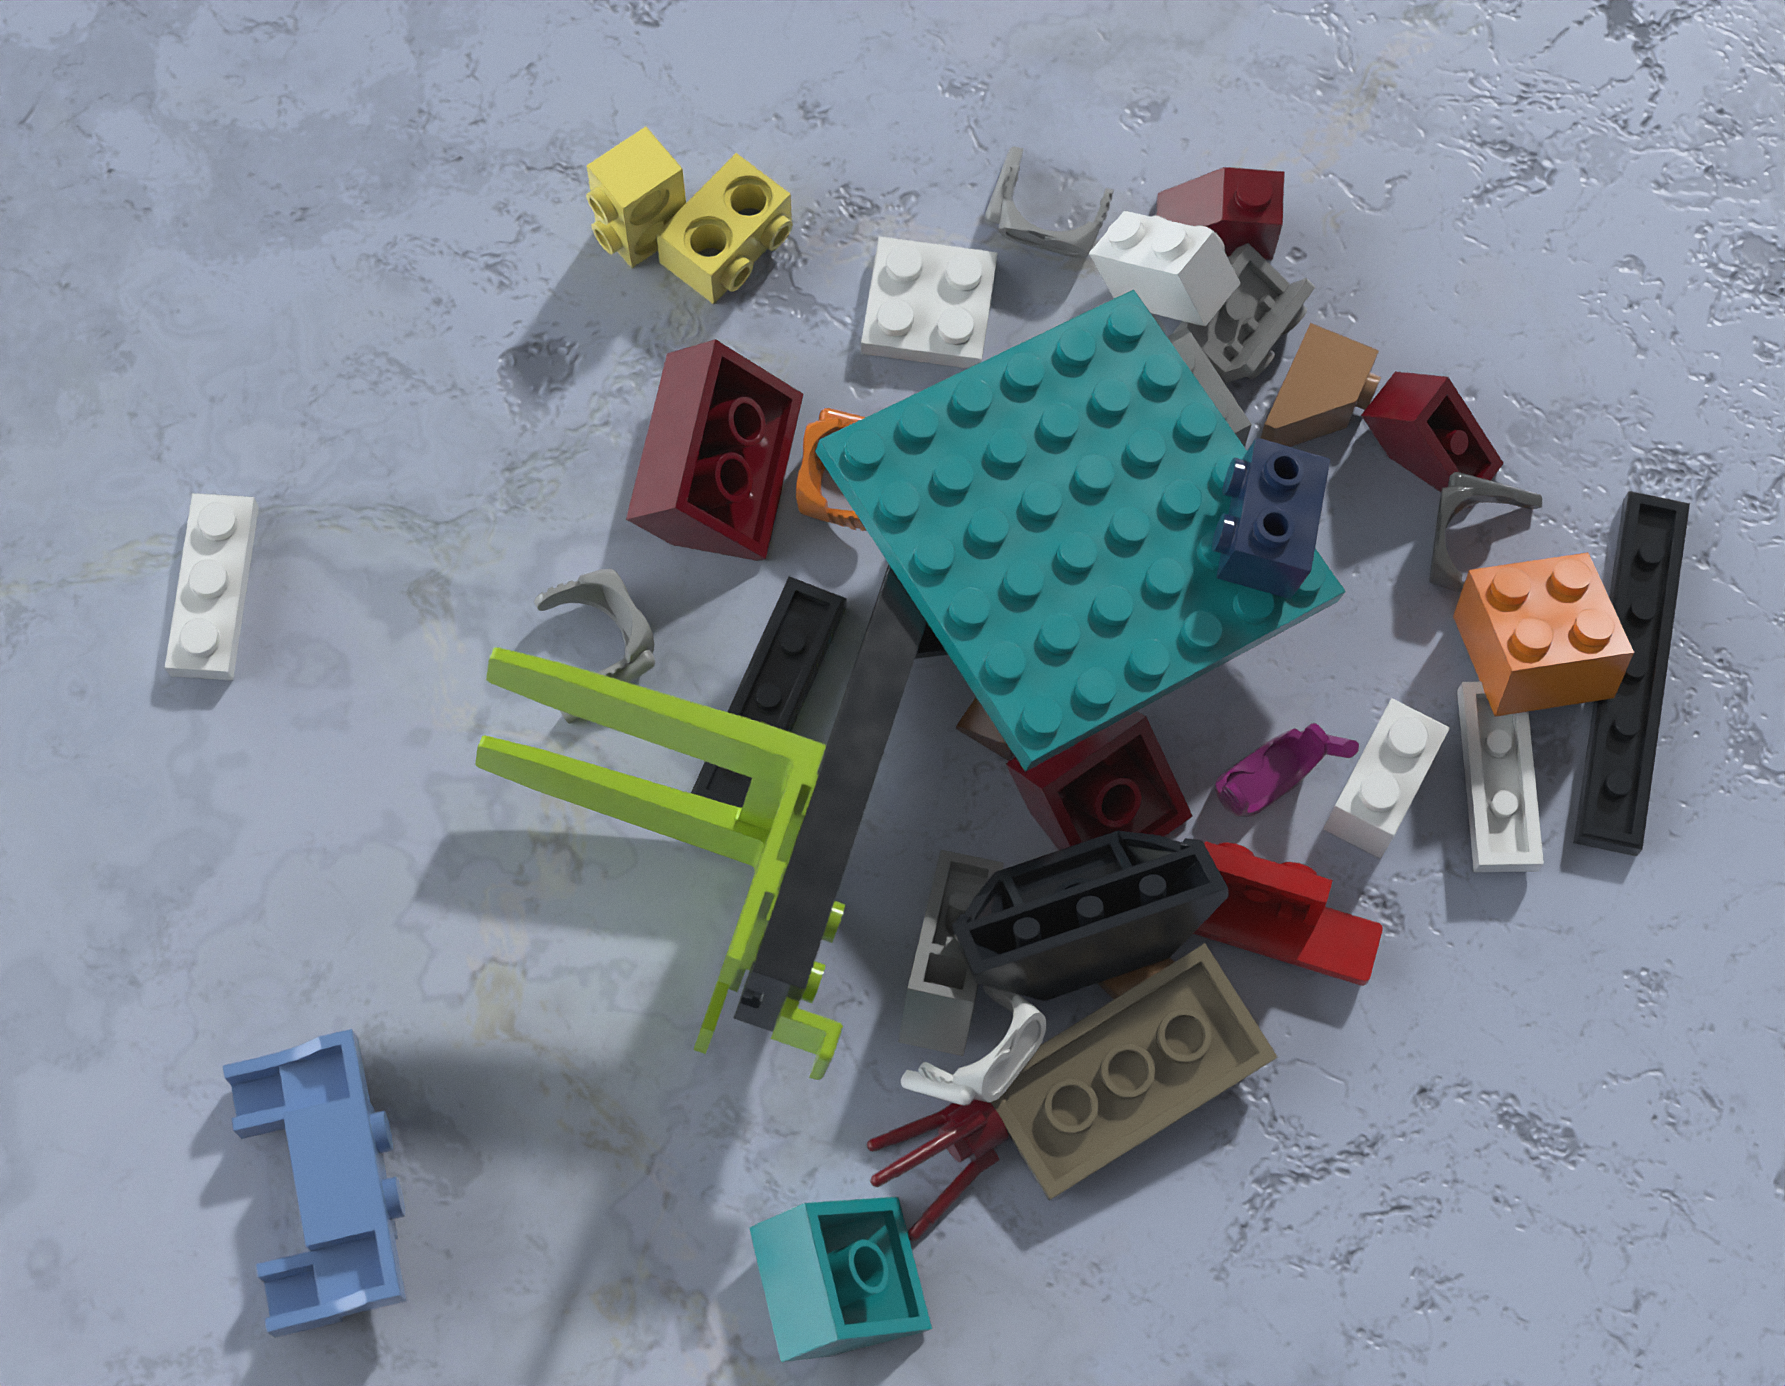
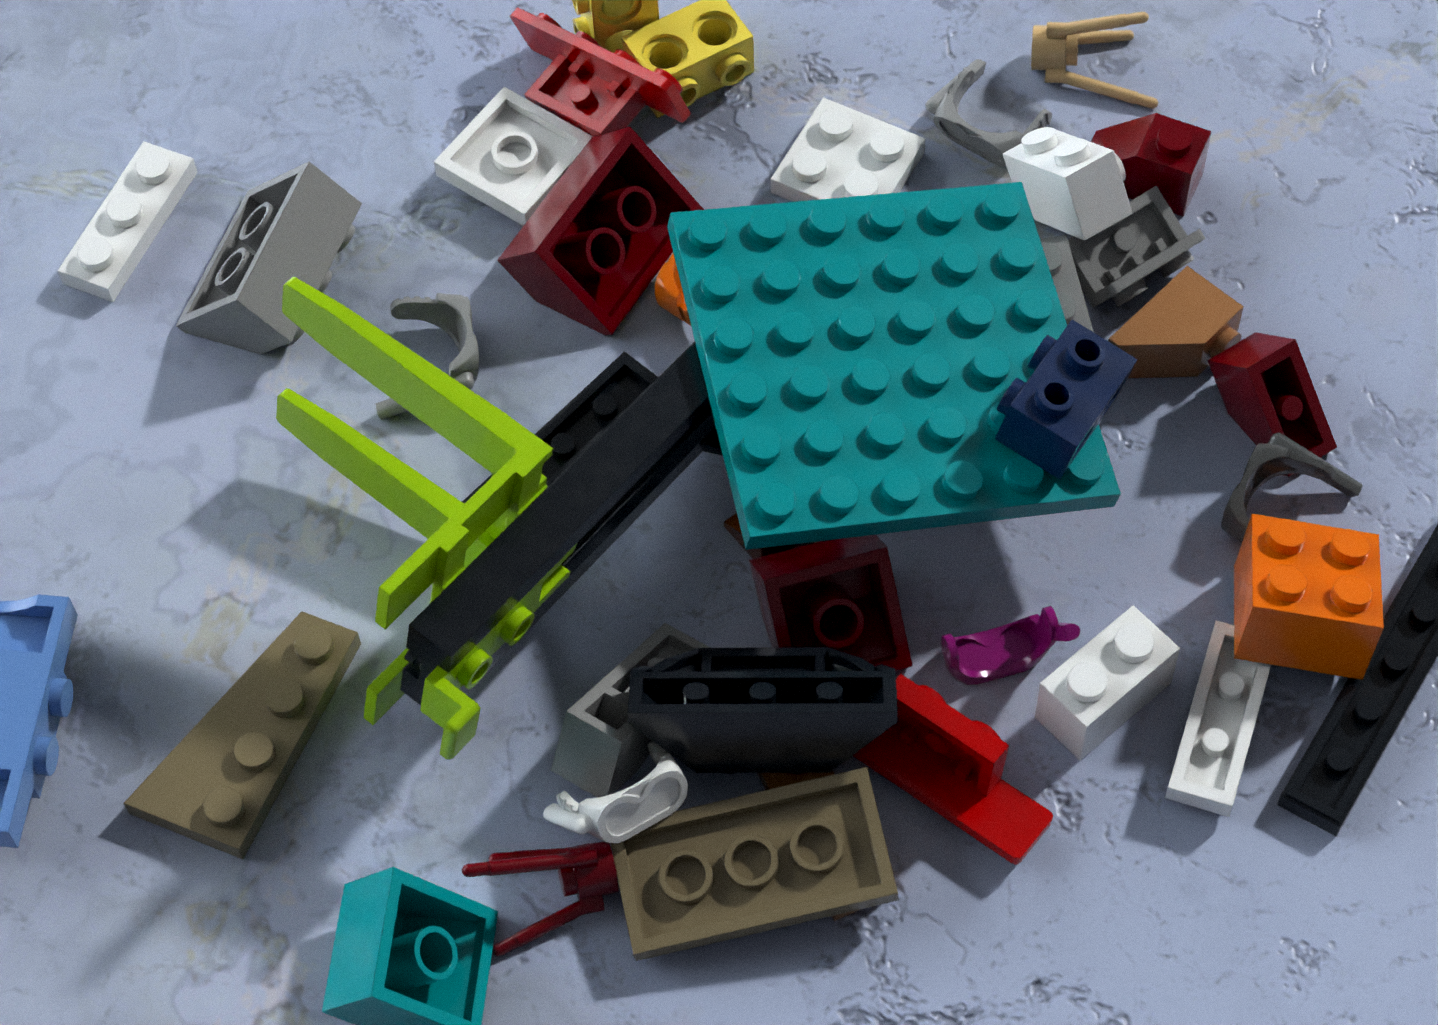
camera: 25 degrees right, 10 degrees down
(388, 590) = (277, 234): none -> light grey slope
(581, 1118) = (245, 747): none -> dark tan wing
(591, 395) = (511, 155): none -> white plate
(640, 296) = (591, 84): none -> red bracket
(1091, 112) = (1058, 43): none -> tan plant

